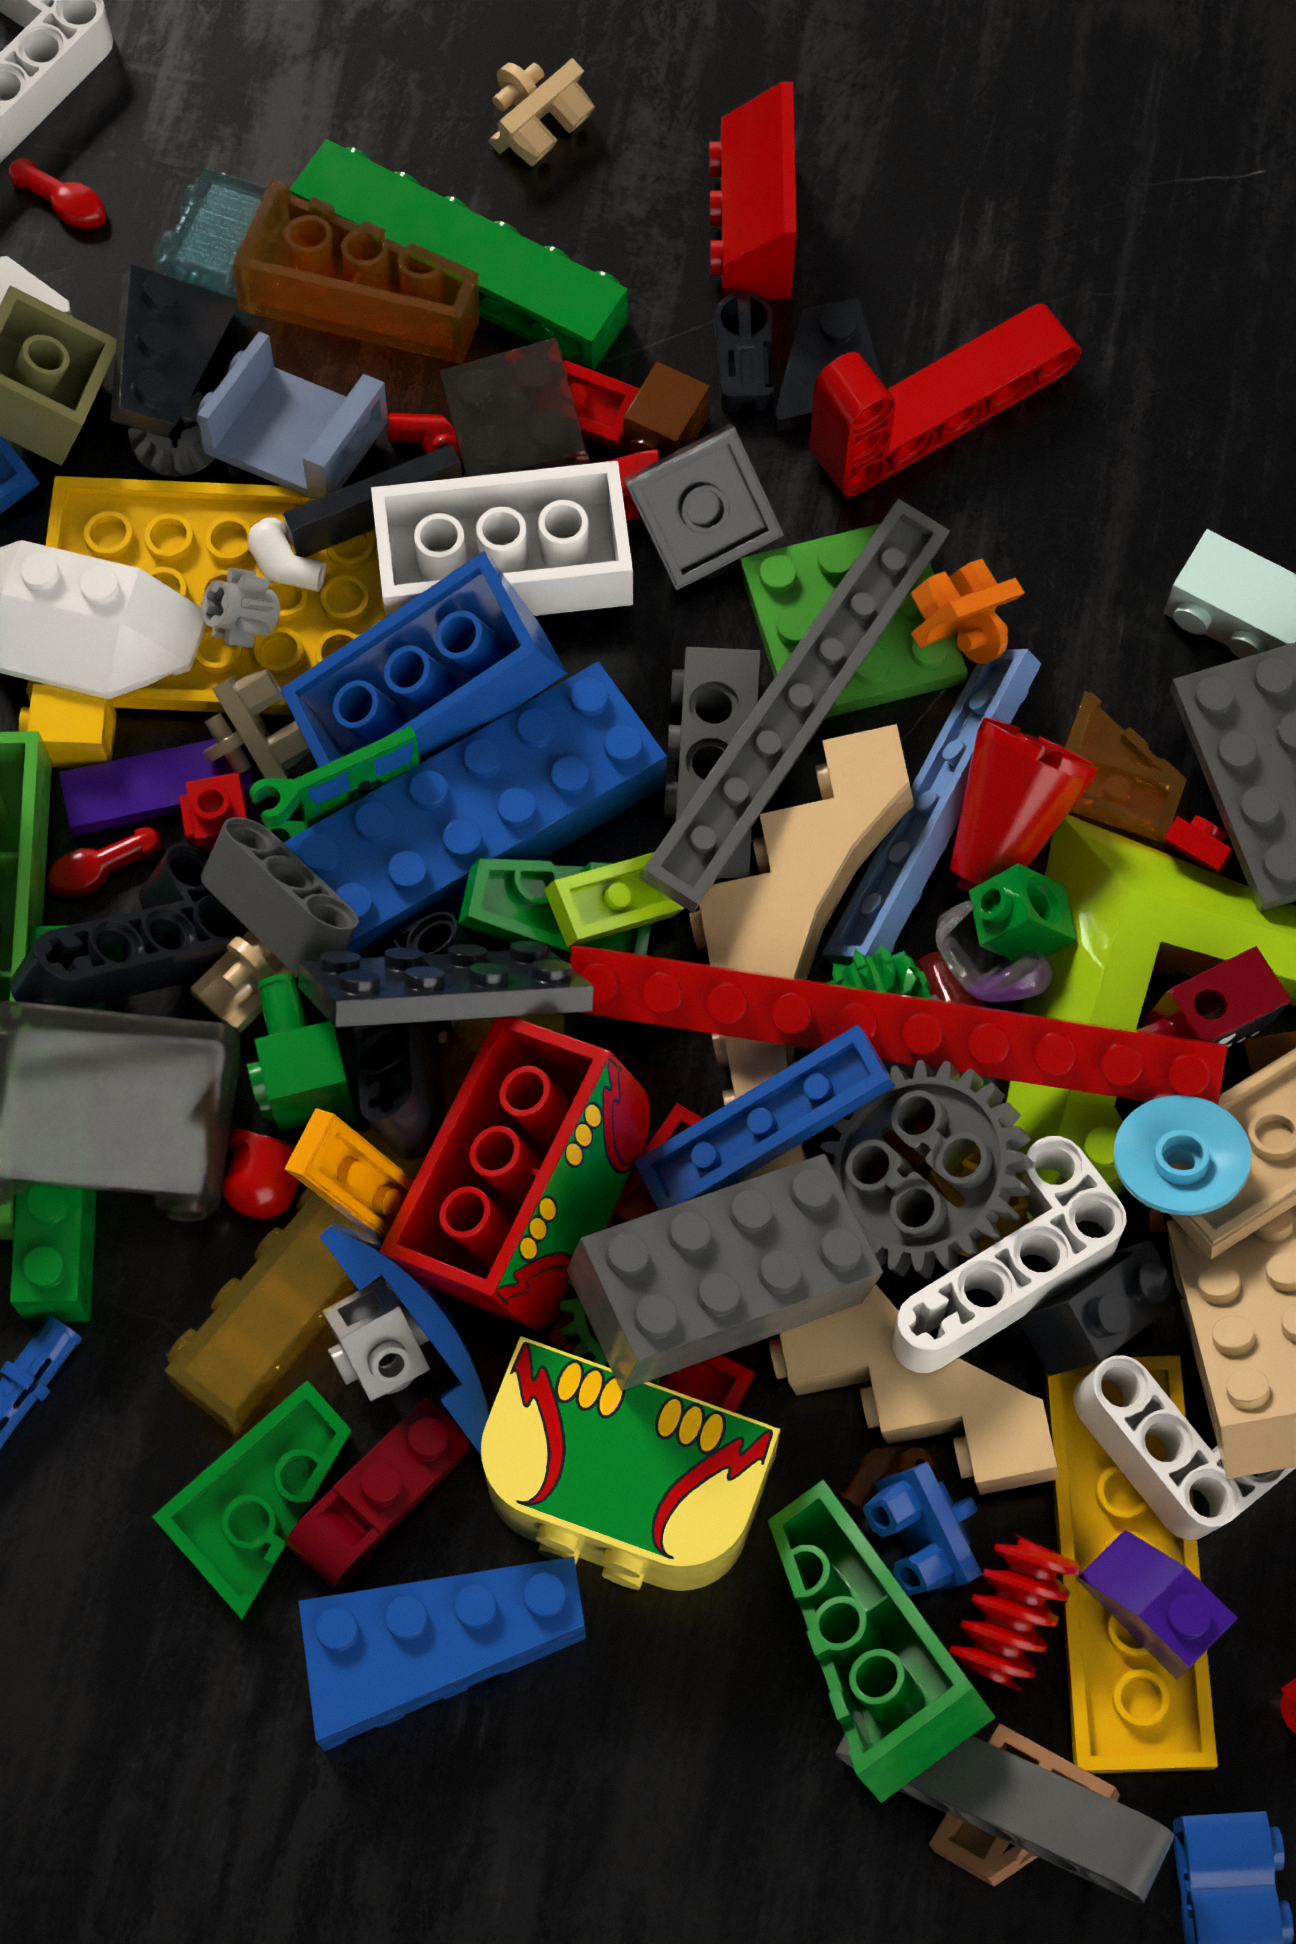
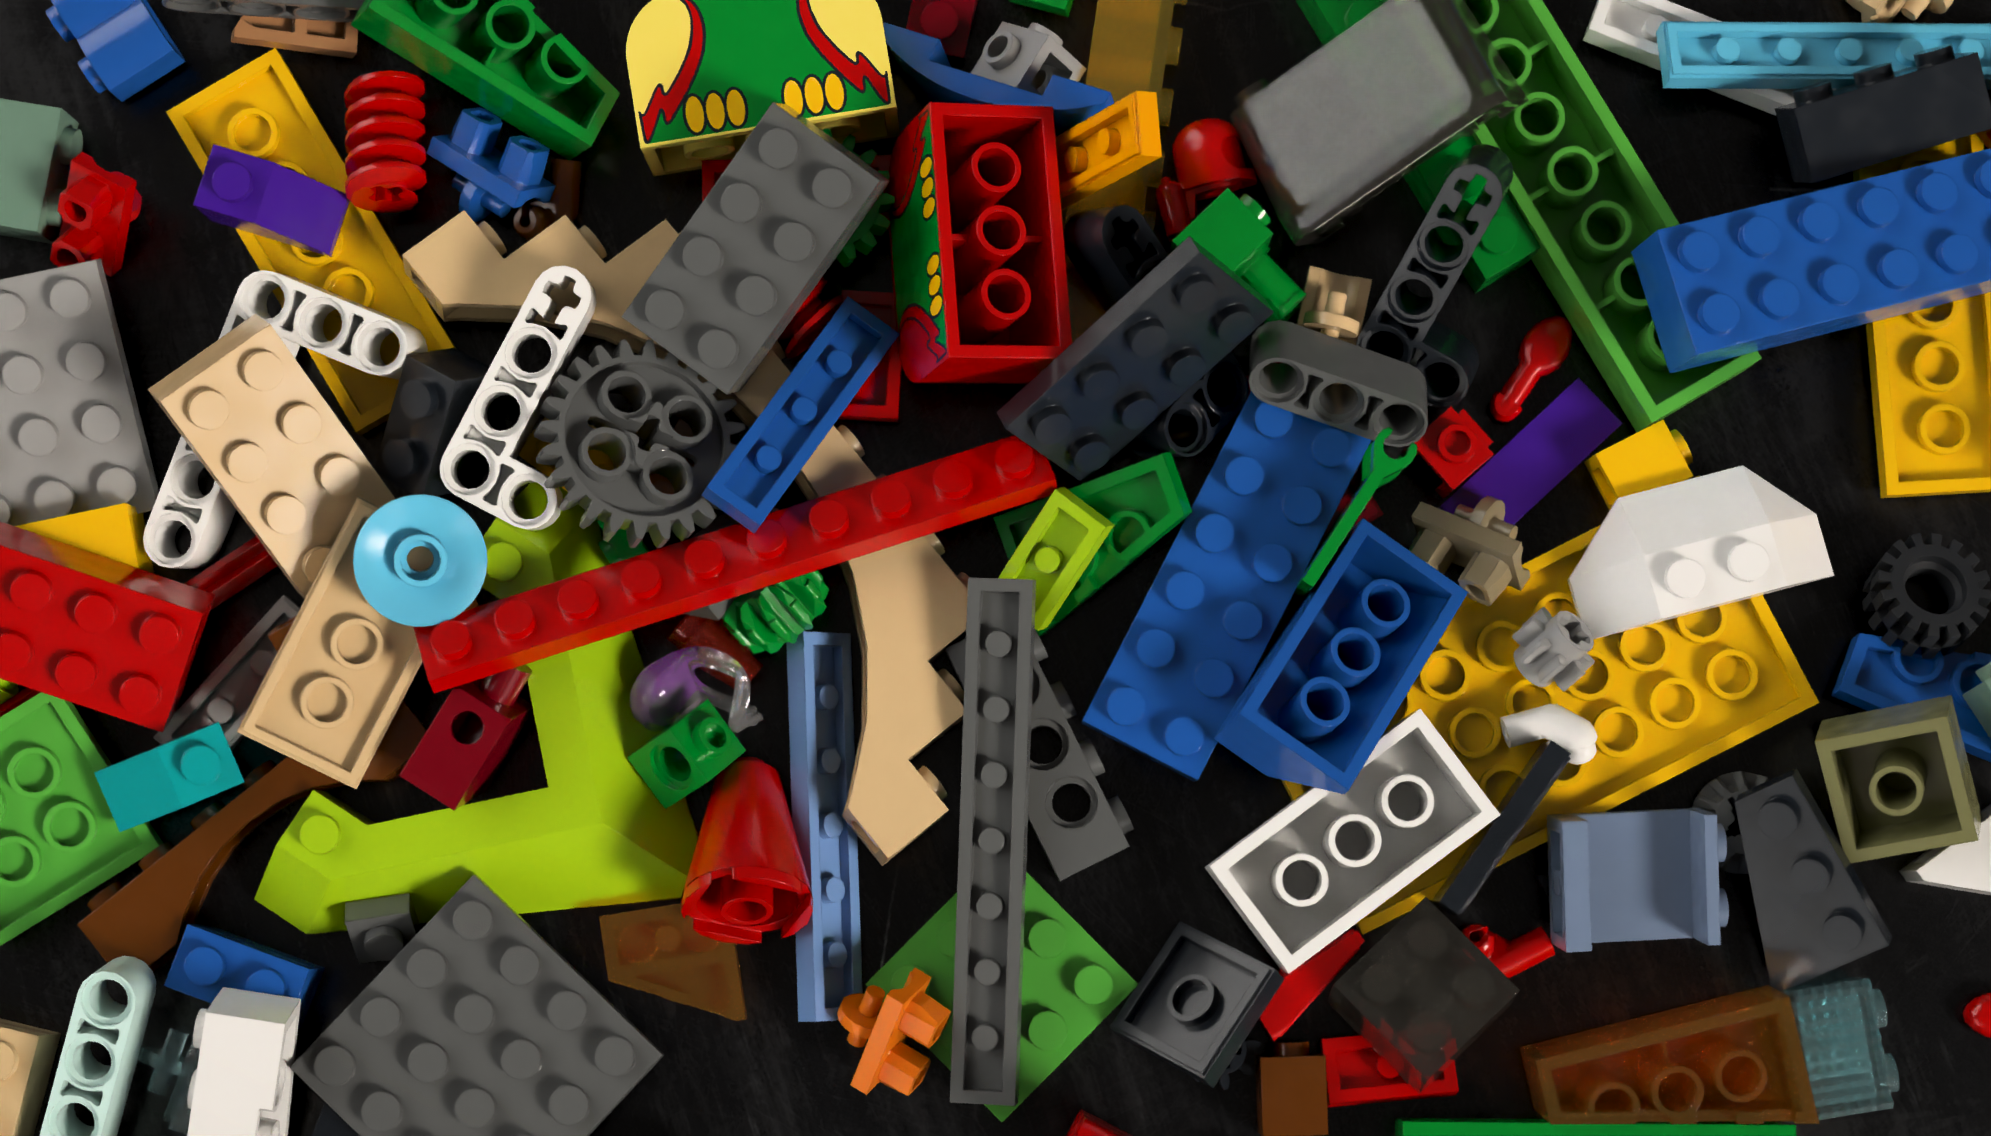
camera: 150 degrees right, 15 degrees up
(1200, 842) = (566, 921): red plate -> none

